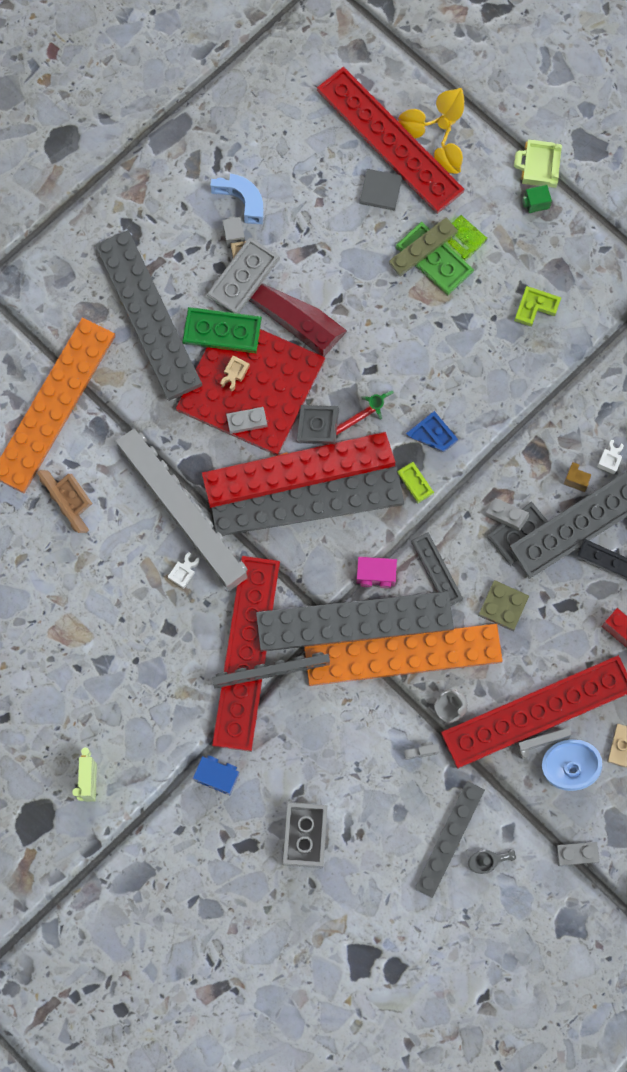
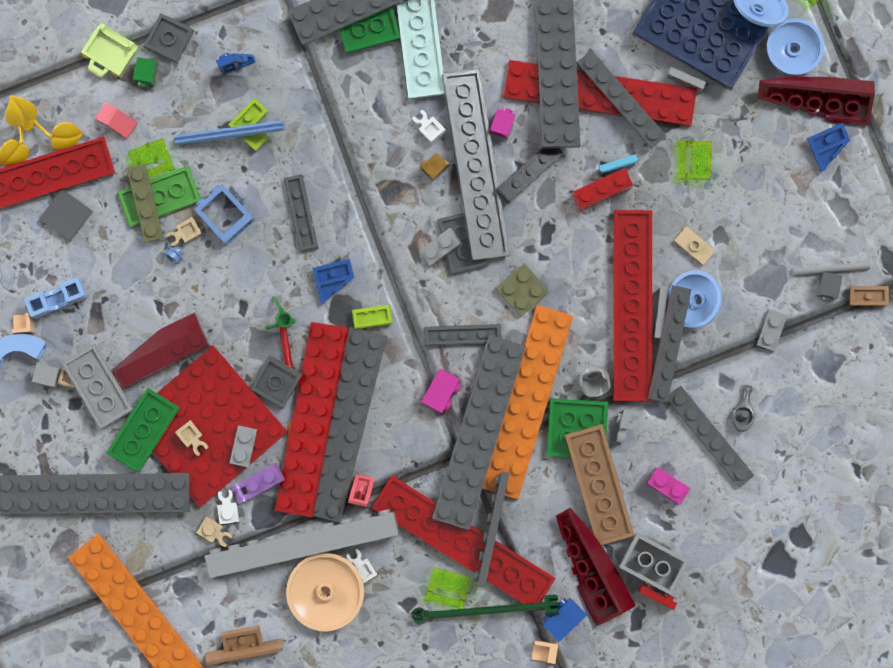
camera: 60 degrees left, 10 degrees up
(147, 547) = (325, 592): none -> light nougat dish
(159, 428) = (212, 530): none -> tan plate
(178, 771) = (544, 651): none -> light nougat panel
(183, 434) = (228, 511): none -> white plate
(205, 657) = (450, 582): none -> clear neon green plate
(219, 447) = (258, 483): none -> medium lavender plate
(222, 754) = (548, 605): none -> dark green hinge
(253, 541) = (361, 490): none -> coral slope
(267, 793) = (596, 574): none -> dark red wedge
(270, 195) = (23, 324): none -> light nougat panel
(277, 846) = (665, 599): none -> red plate
(314, 219) = (48, 302): none -> light blue arch
(356, 752) = (599, 484): none -> medium nougat plate
(385, 818) = (668, 486): none -> dark pink brick
(389, 291) = (174, 254): none -> medium blue plate
(399, 711) = (571, 416): none -> green plate
(414, 292) = (187, 231): none -> tan plate
(440, 333) = (237, 228): none -> medium blue window
(478, 382) = (301, 213): none -> dark grey tile
(483, 195) = (116, 120): none -> coral slope
(519, 289) = (231, 132): none -> medium blue axle
(519, 759) = (669, 343): none -> dark grey plate
(576, 206) = (169, 38): none -> dark grey tile
(582, 264) = (231, 62): none -> blue wing

